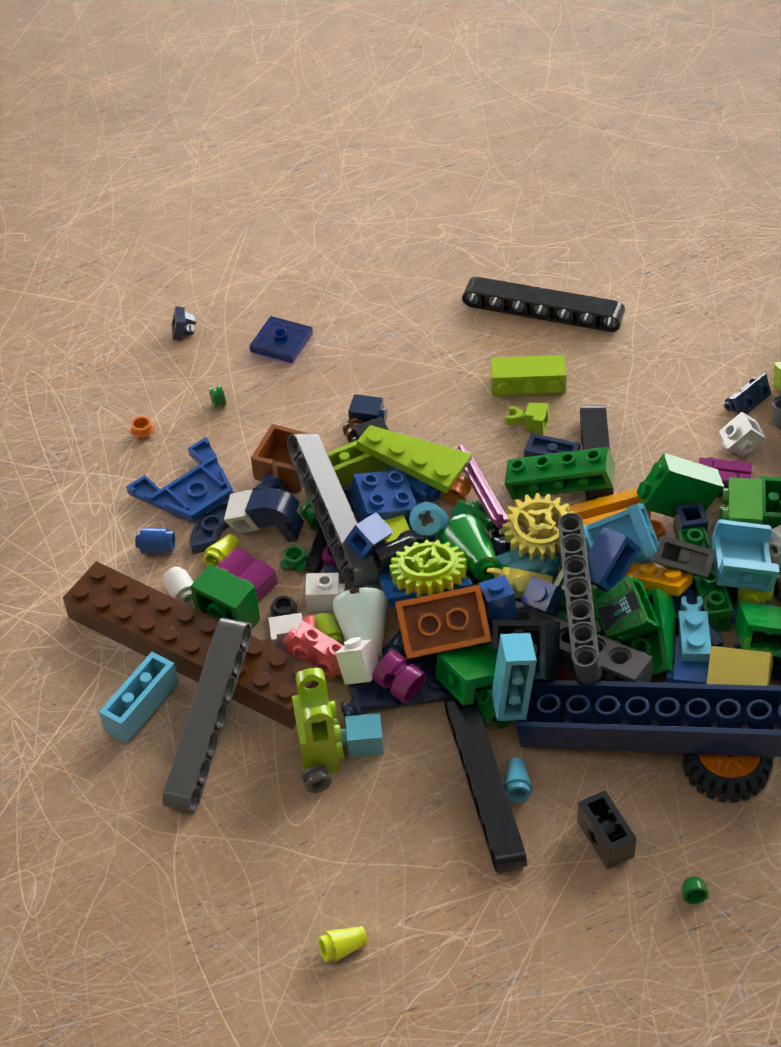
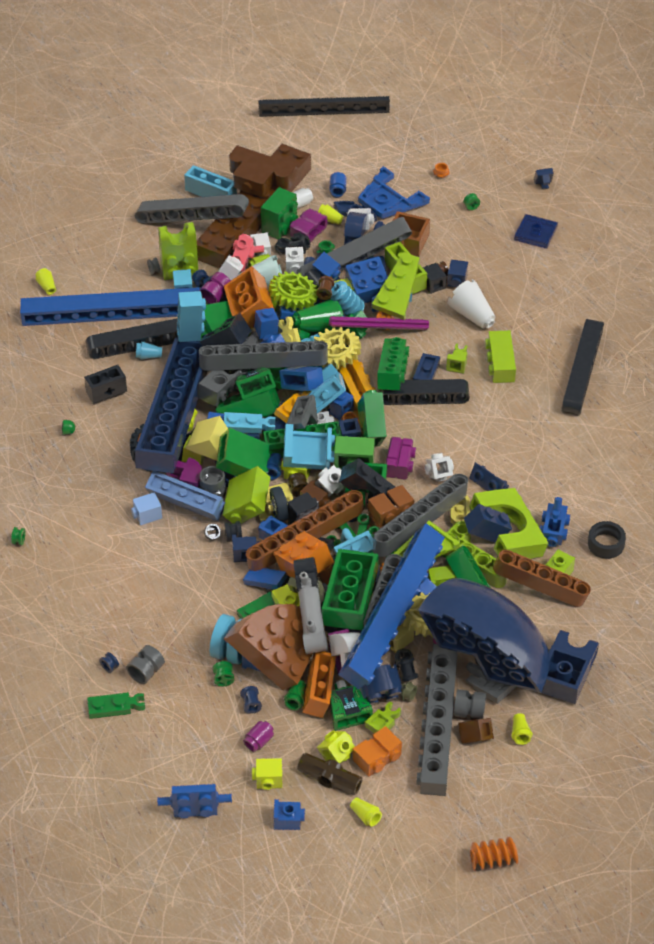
camera: 85 degrees right, 0 degrees up
(145, 614) = (259, 172): none -> reddish brown brick
(288, 583) = (300, 240): none -> black gear
(412, 846) = (100, 307): none -> blue brick
(429, 526) = (325, 285): none -> reddish brown bush
(433, 396) = (472, 304): none -> white cone

